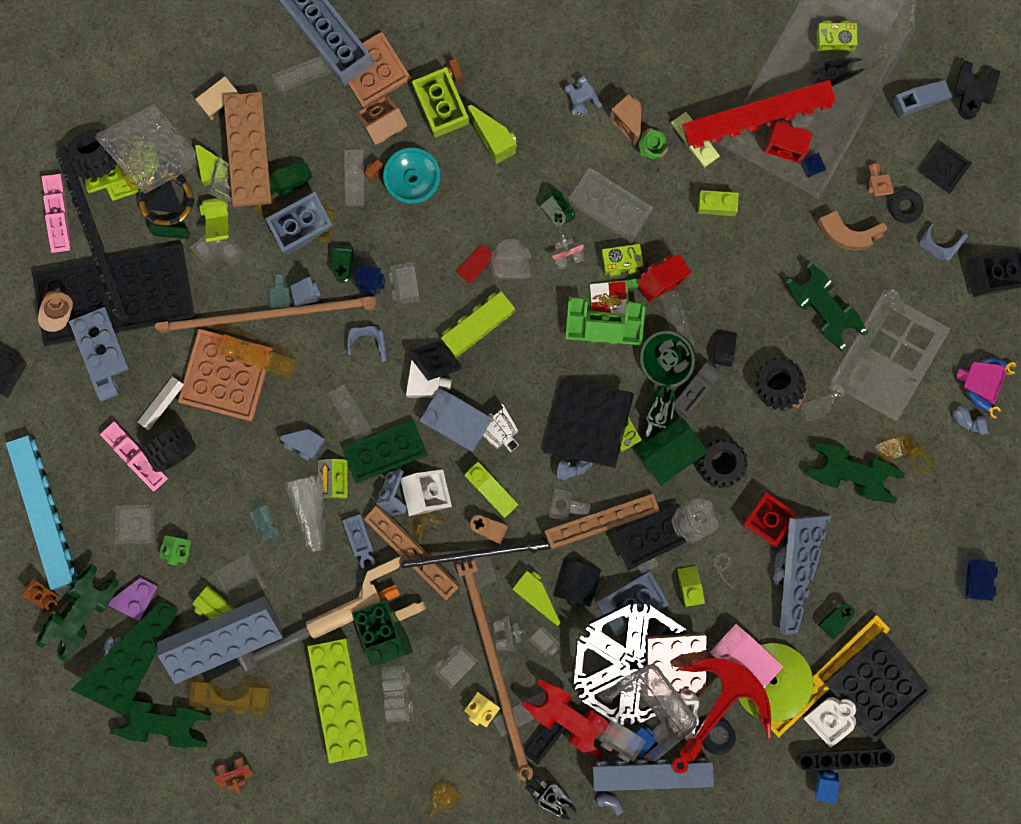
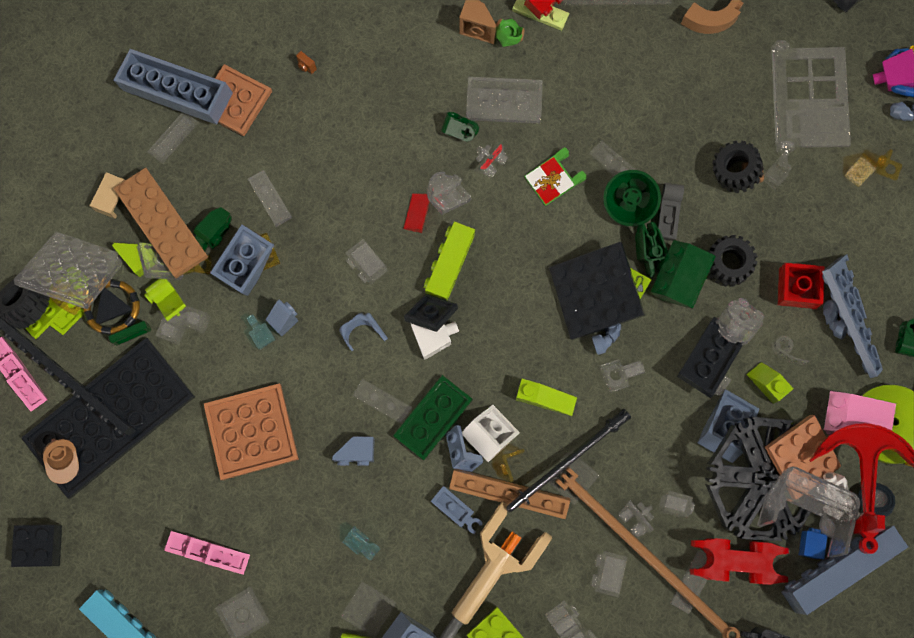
camera: 30 degrees left, 5 degrees down
(104, 366) = (134, 486): sand blue hinge -> none
(160, 403) = (205, 490): white tile -> none
(169, 449) = (236, 526): black tyre -> none
(175, 550) = (293, 617): bright green brick -> none
(257, 356) = (278, 396): clear yellow arch -> none
(308, 507) = (393, 506): clear cone -> none
(335, 477) = (399, 469): lime panel -> none
(342, 260) = (299, 272): dark green piece -> none
(367, 302) = (341, 297): medium nougat hinge -> none
(370, 280) = (333, 275): clear blue brick -> none
(373, 170) = (282, 181): dark orange plate -> none
(381, 119) = (265, 136): medium nougat slope -> none
(381, 633) = (527, 583): dark green slope -> none
(410, 163) = (318, 156): teal dish -> none
(440, 102) = (308, 94): lime brick -> none
(455, 420) = (480, 353): sand blue slope -> none
(481, 710) = (656, 600): light yellow brick -> none
(492, 529) = (566, 431): medium nougat piece -> none
(494, 135) = (369, 95): lime slope -> none
(501, 429) = (521, 341): white torso -> none
(534, 593) = (641, 467): lime slope -> none
(543, 742) = (727, 597): black tile -> none
(577, 582) = (669, 436): black slope -> none
(582, 94) = (424, 24): sand blue animal -> none
(602, 521) = (659, 370): medium nougat plate -> none
(604, 326) = (559, 202): bright green bracket -> none
(611, 801) = (818, 615): sand blue arm -> none
(622, 260) = (540, 140): lime brick -> none
(622, 740) = (799, 552): clear brick -> none
(663, 277) = (586, 132): red brick -> none
(718, 203) = (592, 50): lime brick -> none
(725, 348) = (672, 166): black panel -> none
(834, 317) = (744, 88): dark green piece -> none
(869, 477) = (858, 204): dark green piece -> none

